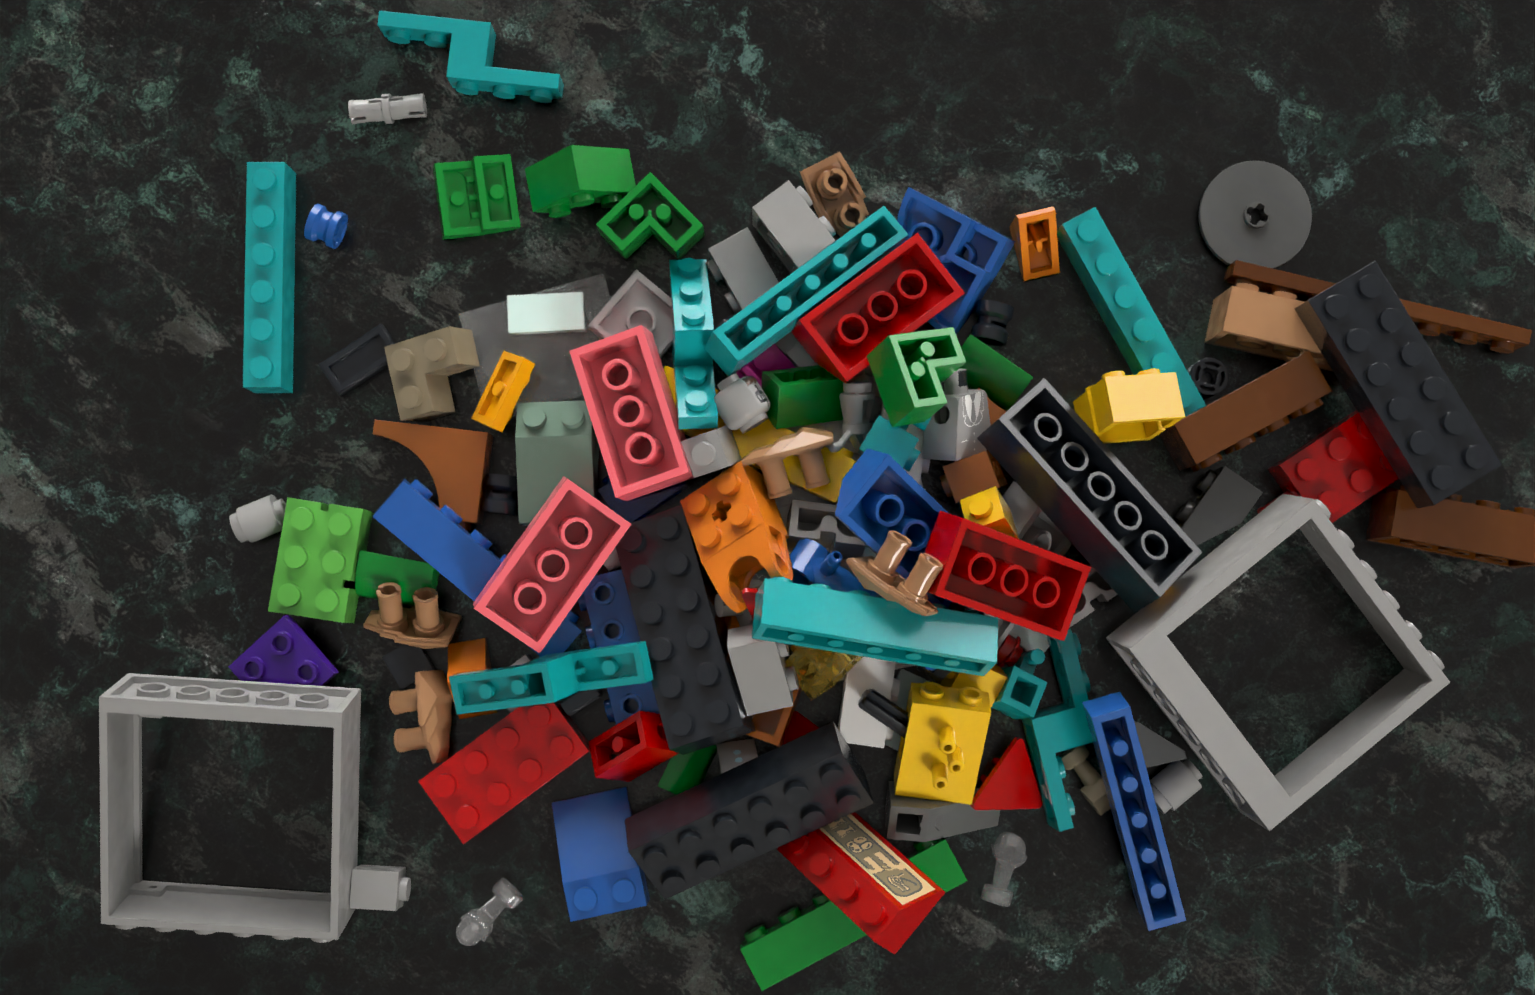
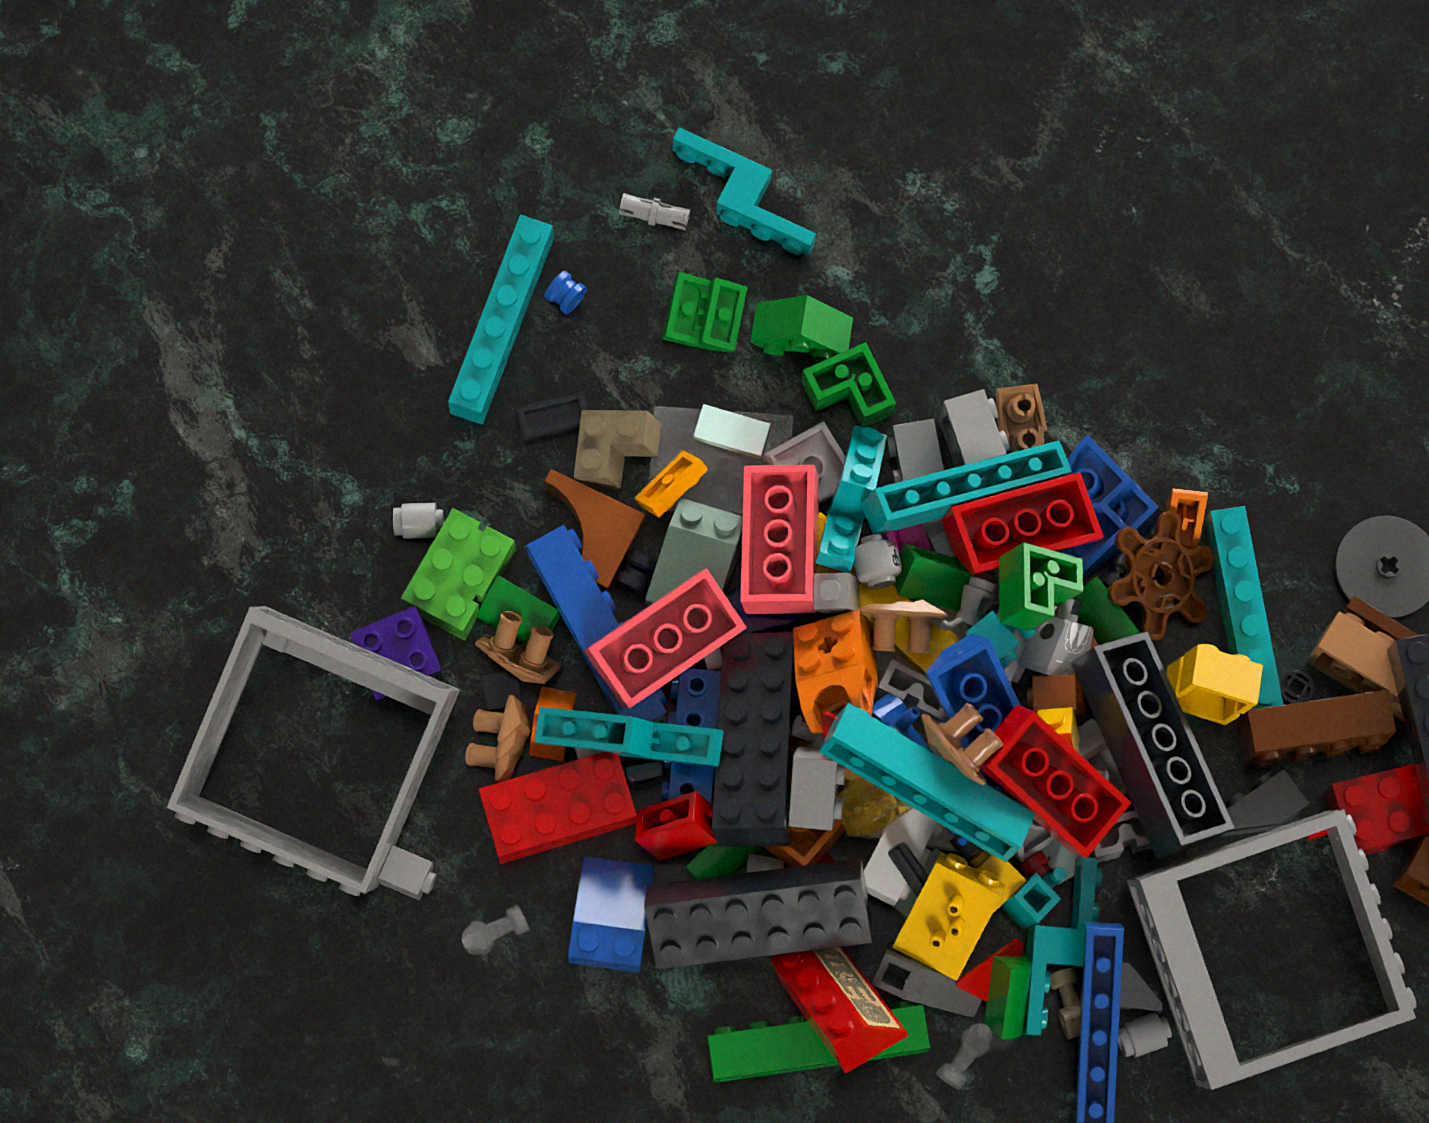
camera: 15 degrees right, 10 degrees down
(1027, 799) = (1008, 996): none -> green brick
(1053, 315) = (1179, 570): none -> reddish brown plate

